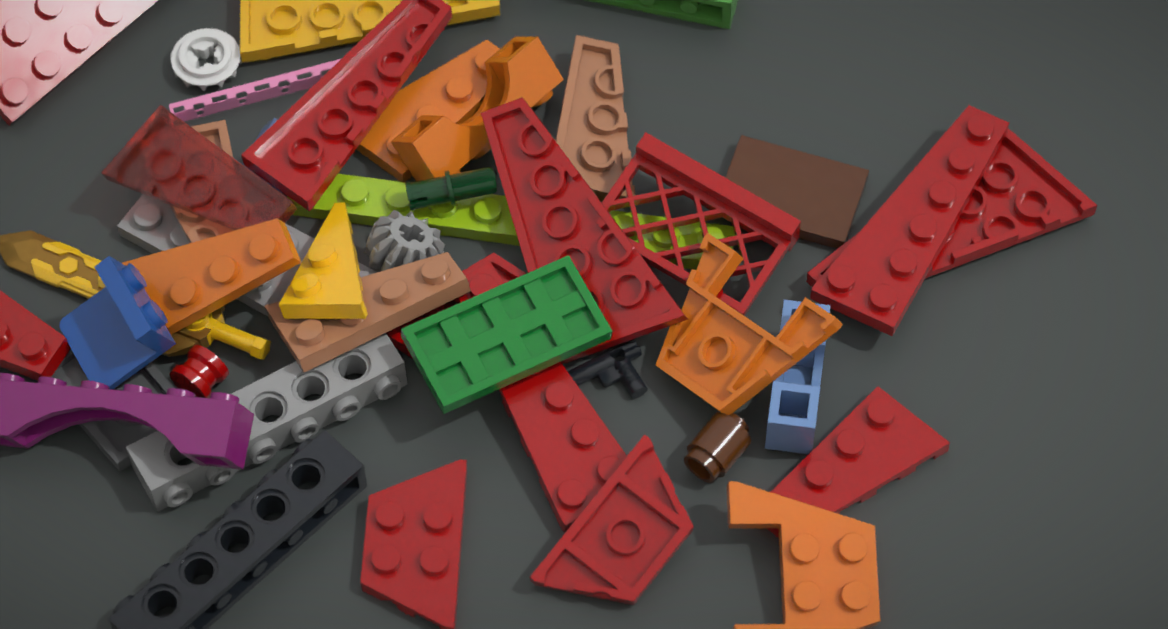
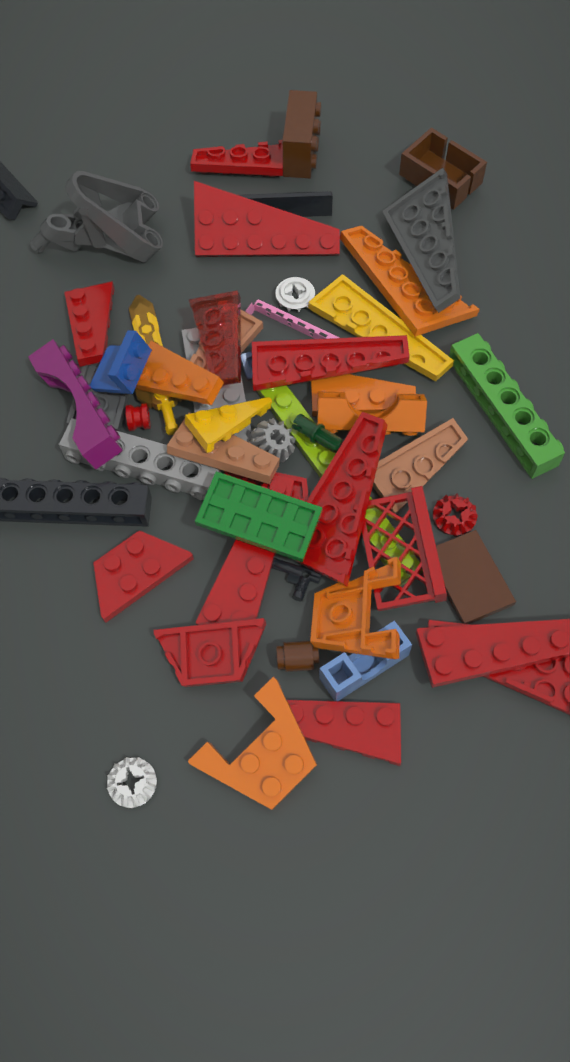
camera: 50 degrees right, 5 degrees up
(718, 138) = (451, 524): none -> red gear

